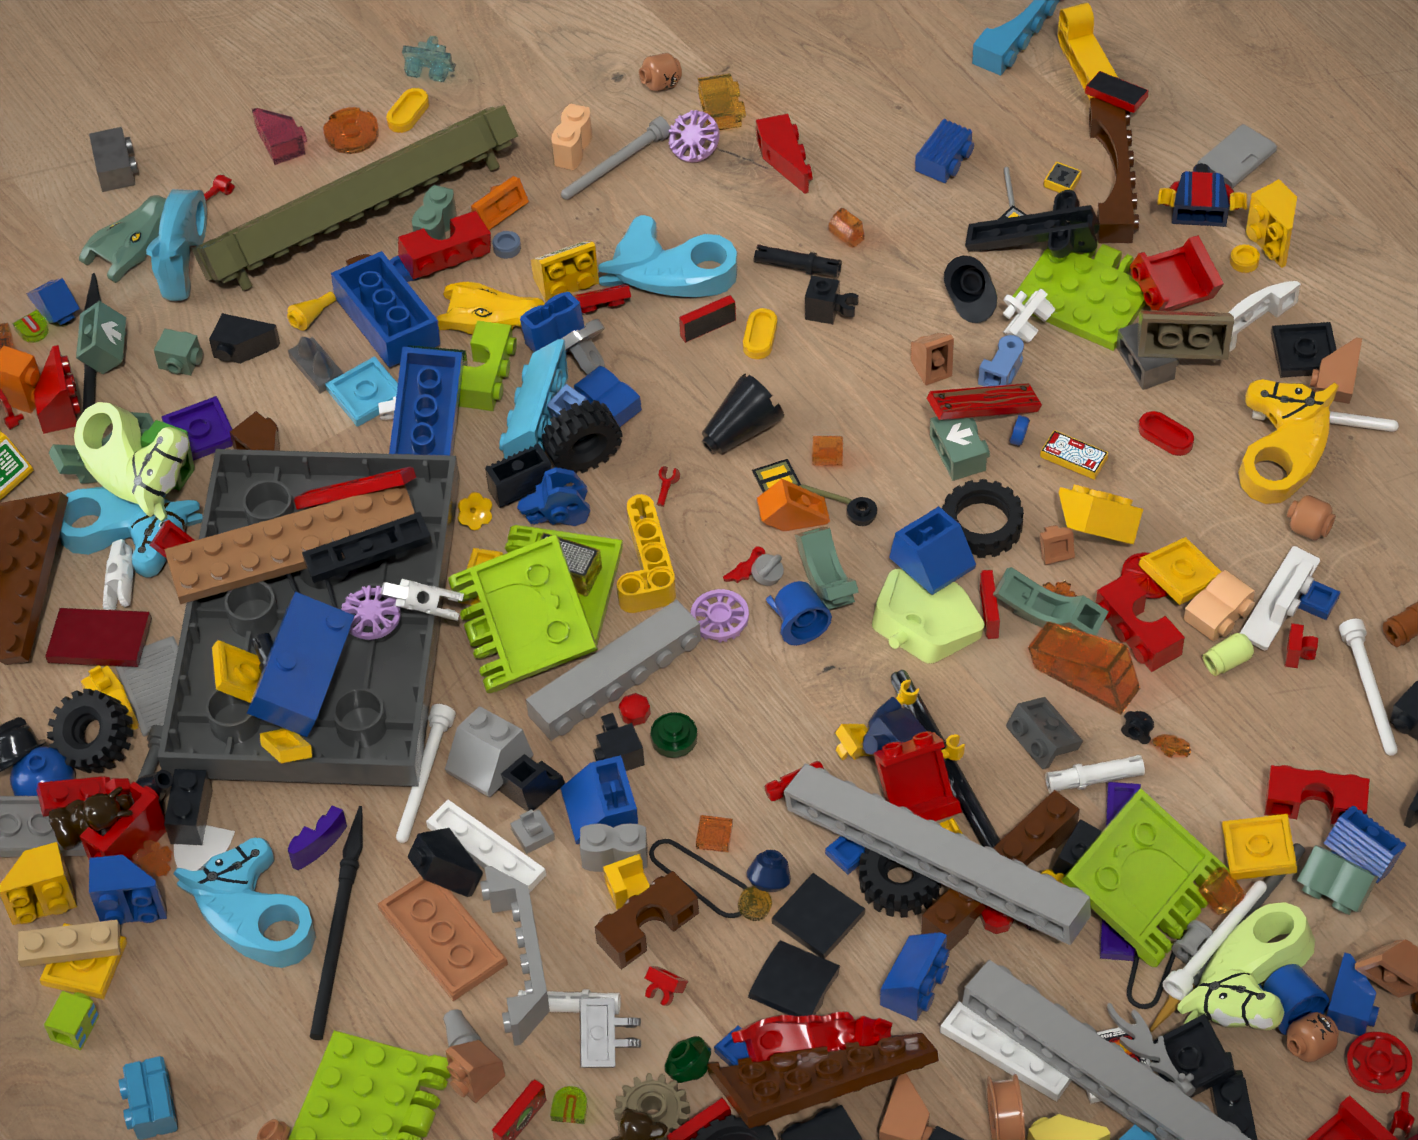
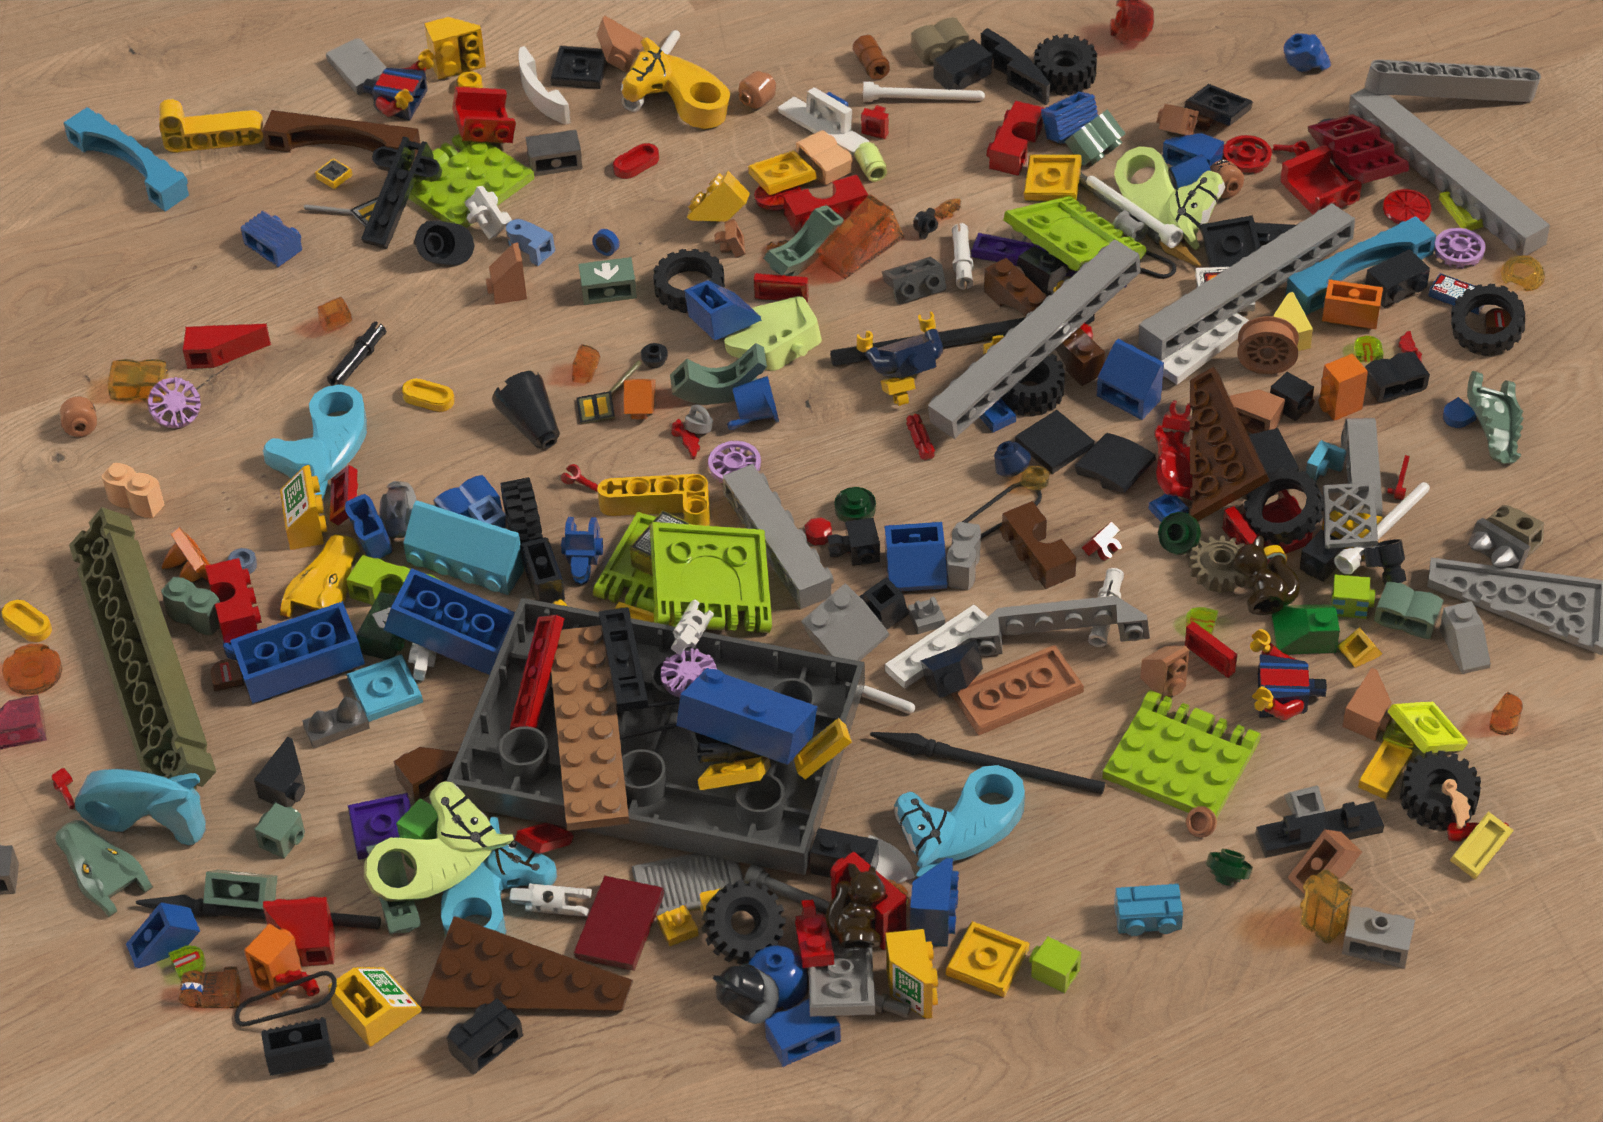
camera: 80 degrees left, 5 degrees down
(68, 943) = (973, 960): tan plate -> none
(158, 782) = (818, 877): black cone -> none
(304, 313) = (269, 723): yellow cone -> none
(314, 843) = (907, 770): dark purple slope -> none
(458, 1028) = (1124, 682): light grey cone -> none
(598, 1032) = (1143, 585): hinge -> none
(625, 879) = (997, 558): yellow panel -> none
(657, 130) = (151, 431): light grey piece -> none
(707, 318) = (401, 423): tile -> none
(714, 833) = (959, 495): clear orange tile -> none
(824, 300) = (415, 340): black brick -> none
(917, 777) = (949, 347): red panel -> none
(983, 401) = (575, 251): red tile -> none
(1074, 454) = (639, 217): tile -> none
(1116, 91) = (266, 110): black tile -> none
(1145, 1048) = (1219, 262): light grey piece -> none
(1184, 334) = (560, 109): dark tan slope -> none
(1222, 891) = (1092, 198): clear orange brick -> none

